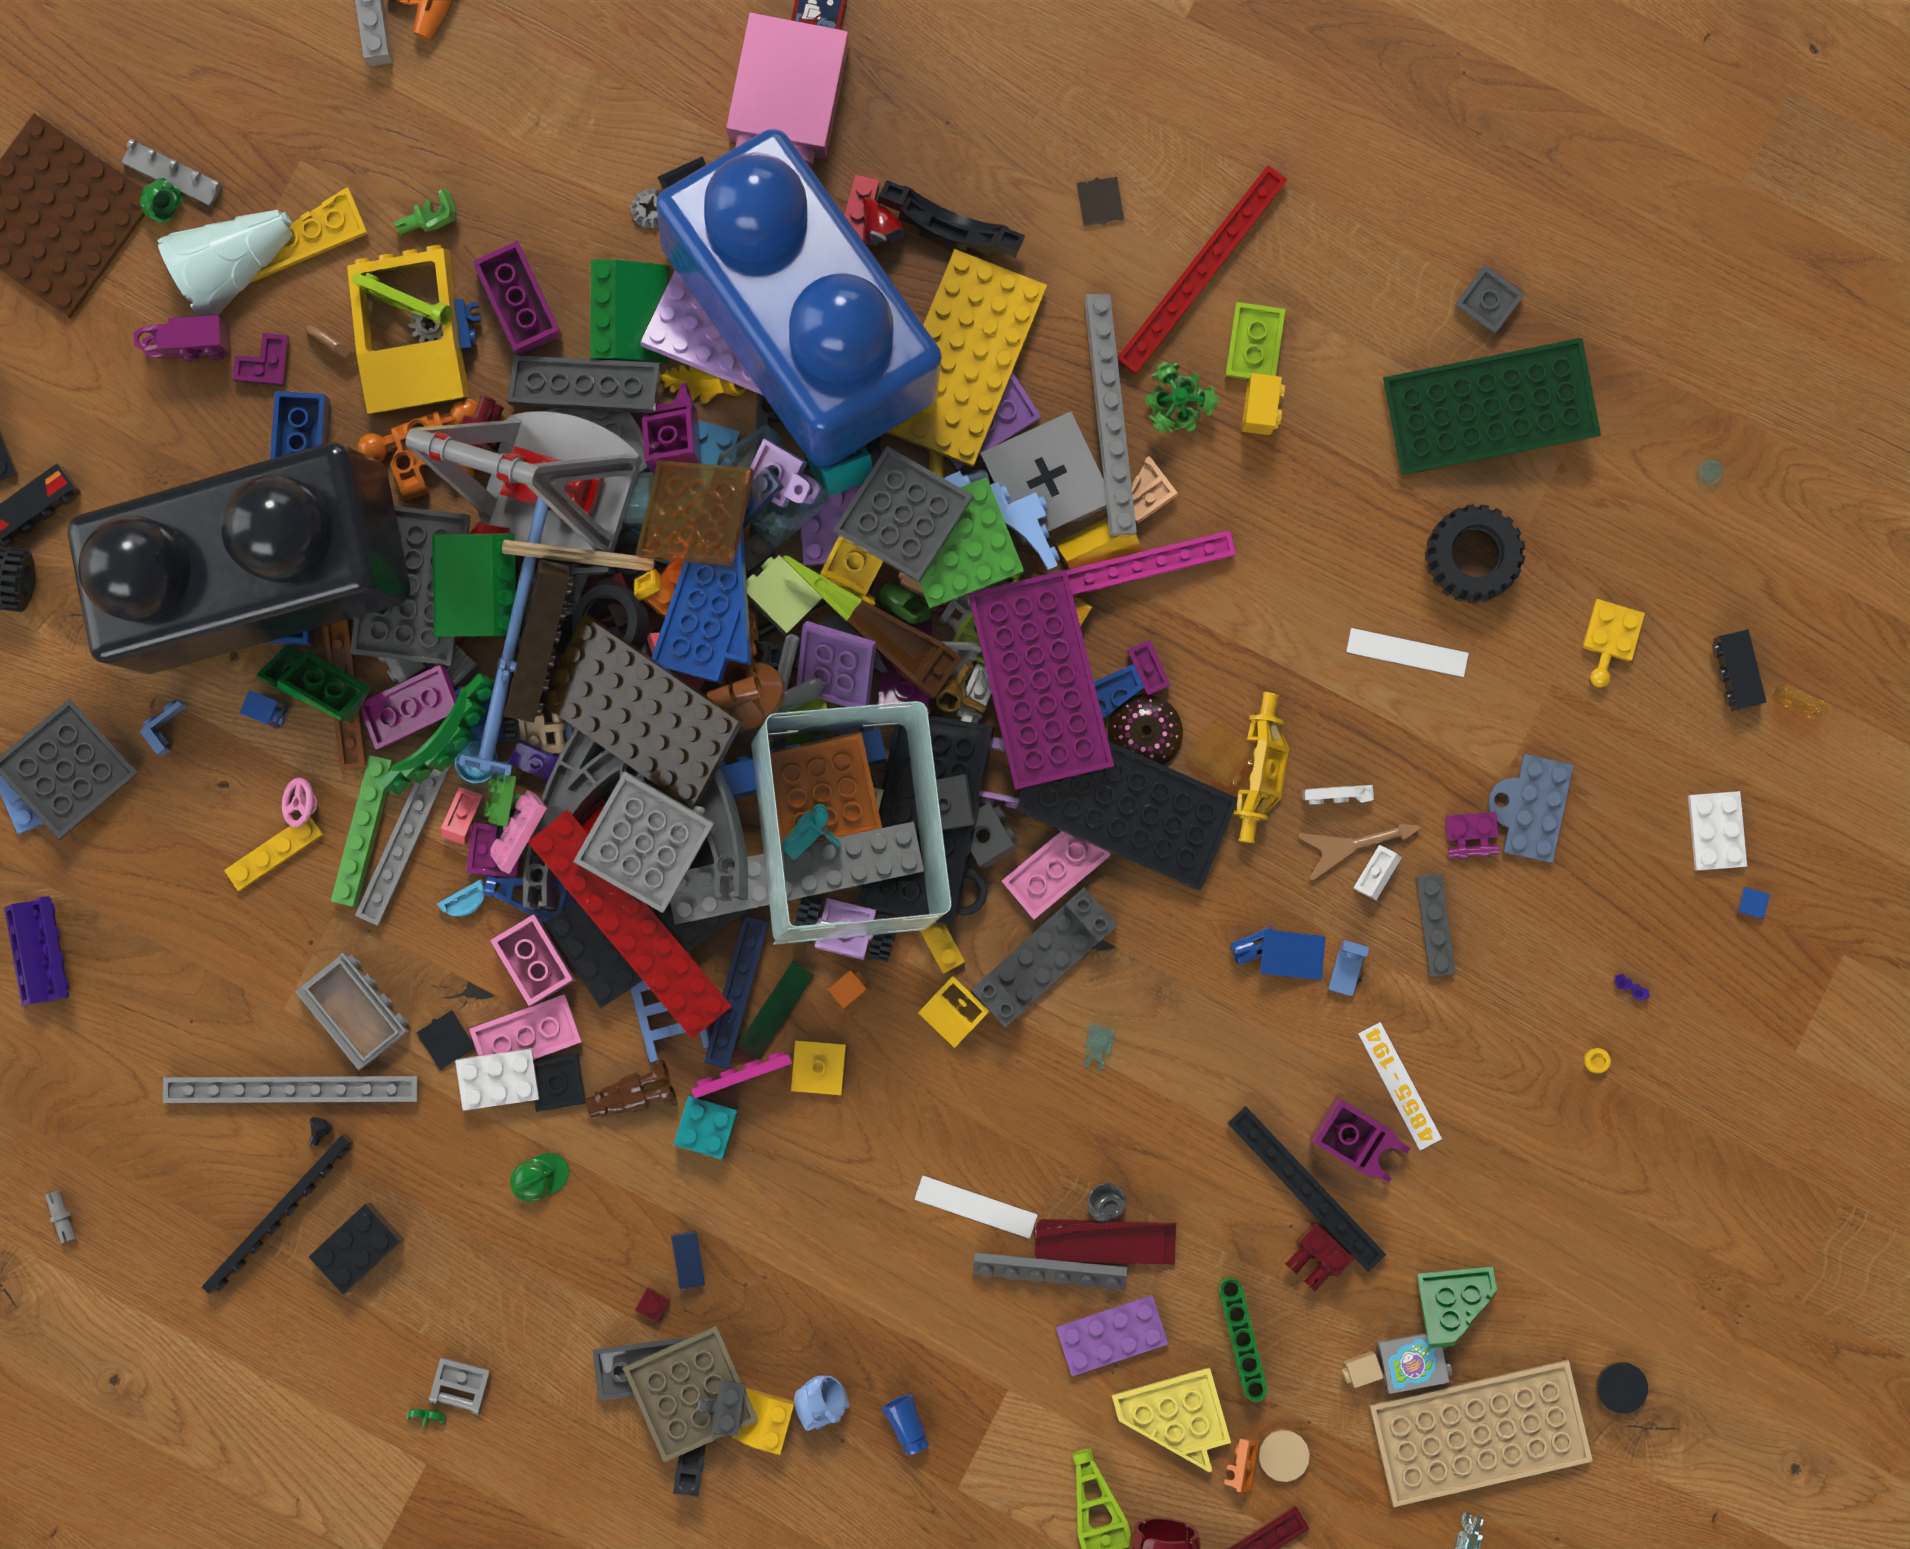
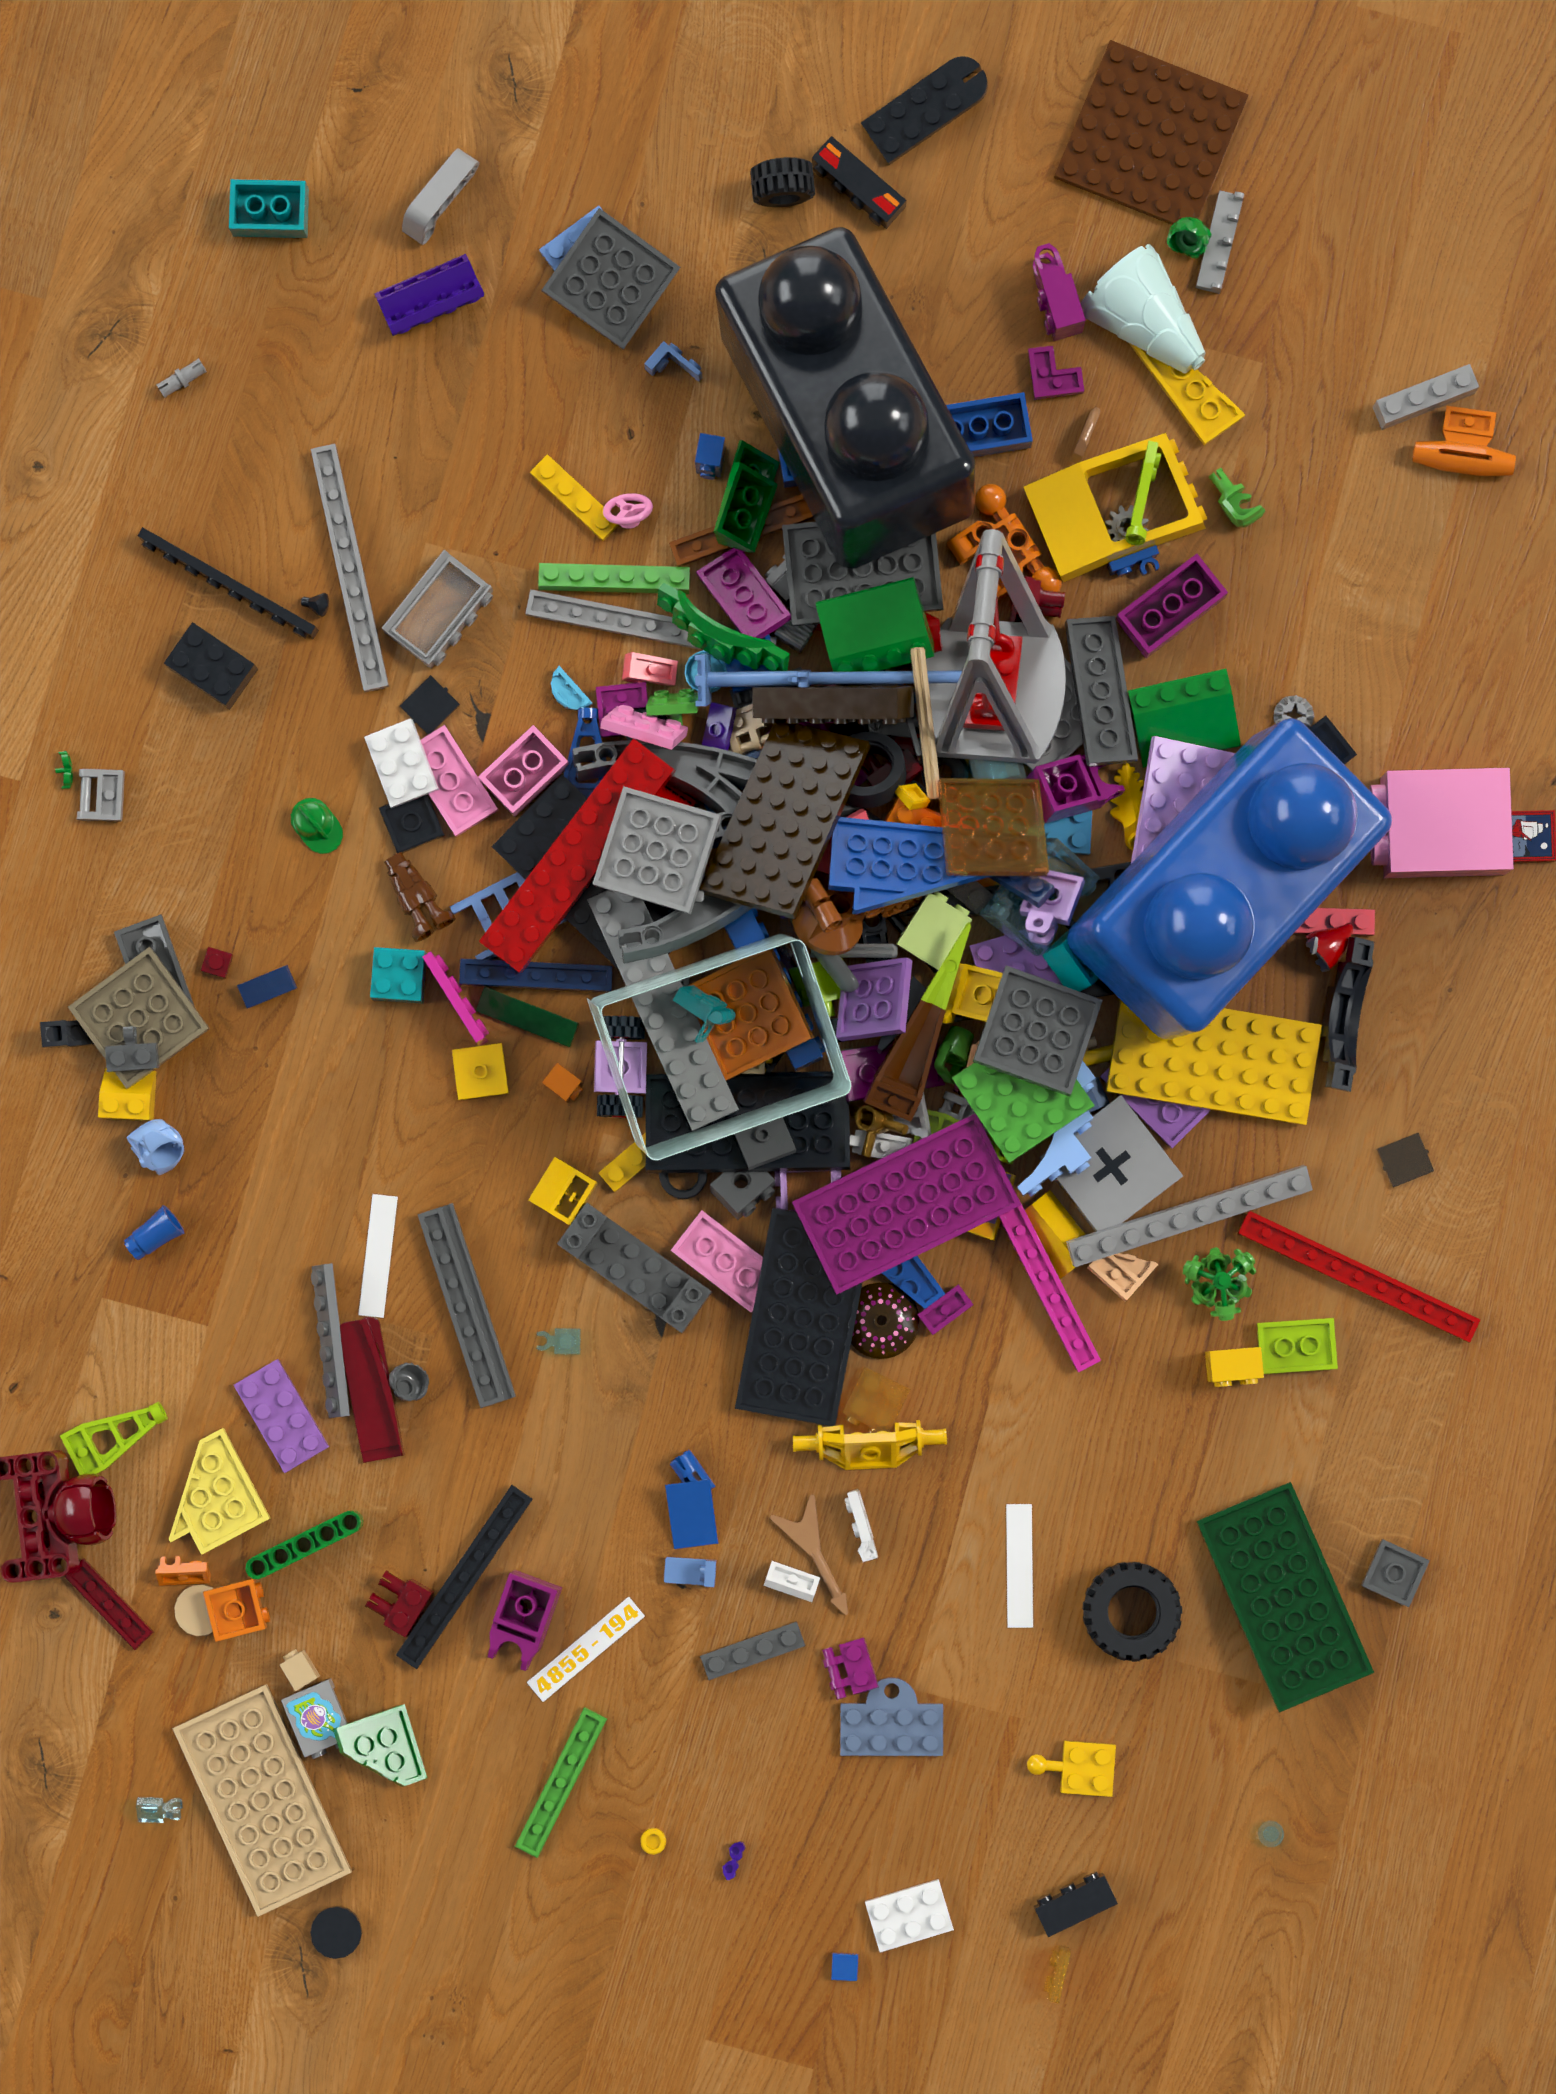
camera: 85 degrees right, 0 degrees up
(1044, 1129) = (466, 1305): none -> dark grey plate
(1291, 1419) = (236, 1609): none -> orange plate
(1523, 1137) = (561, 1782): none -> bright green tile

